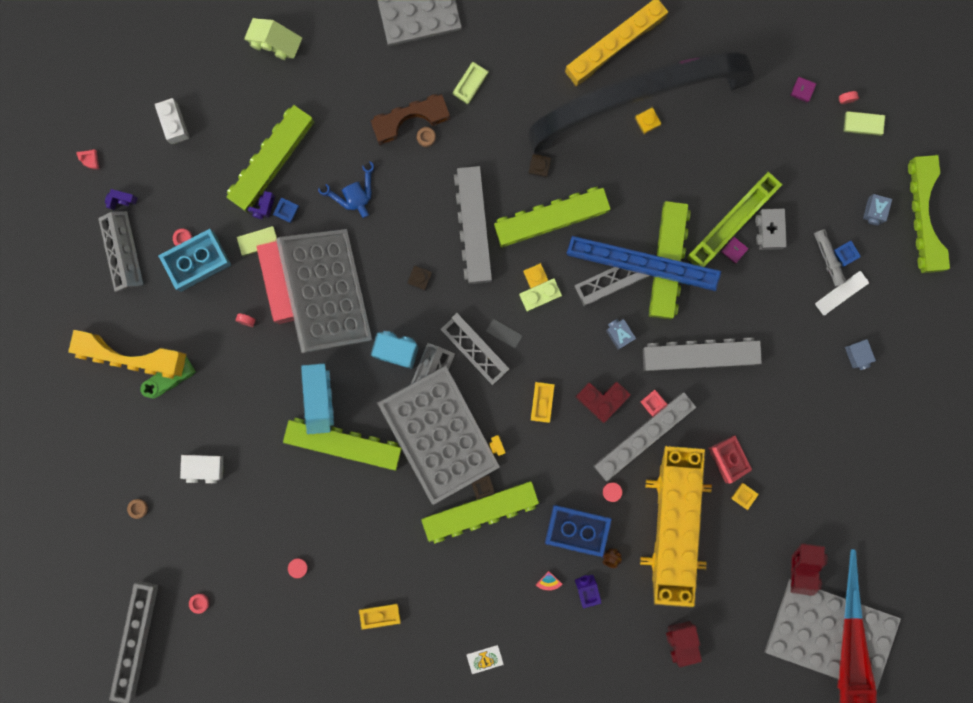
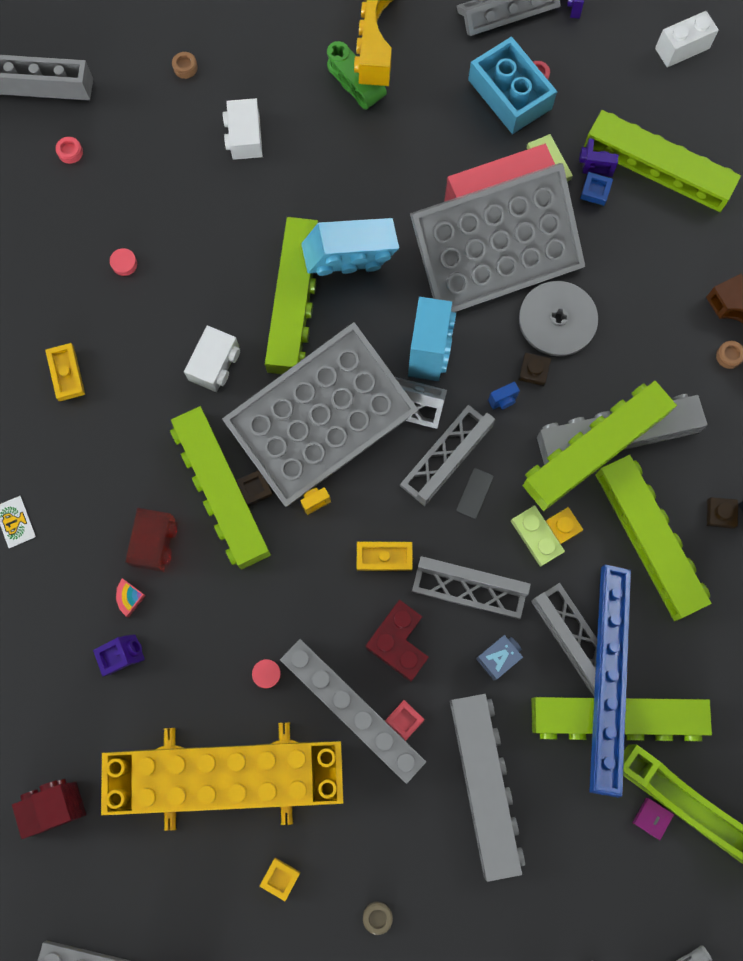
camera: 80 degrees right, 10 degrees down
(245, 320) = (443, 157): coral tile -> none
(354, 194) = (634, 270): blue piece -> none
(377, 241) = (540, 326): none -> light grey piece
(384, 508) = (212, 359): none -> white brick
(439, 303) = (504, 396): none -> blue plate
(487, 244) = (599, 445): none -> lime brick
(511, 562) = (151, 540): none -> clear red brick
(564, 345) = (475, 578): none -> light grey fence
(577, 530) = (204, 627): blue brick -> none
(612, 558) = (169, 684): reddish brown plate -> none
(730, 459) = (333, 850): coral slope -> none
(774, 436) = (377, 918): none -> dark tan tile
(776, 220) = (712, 880): light grey brick -> none

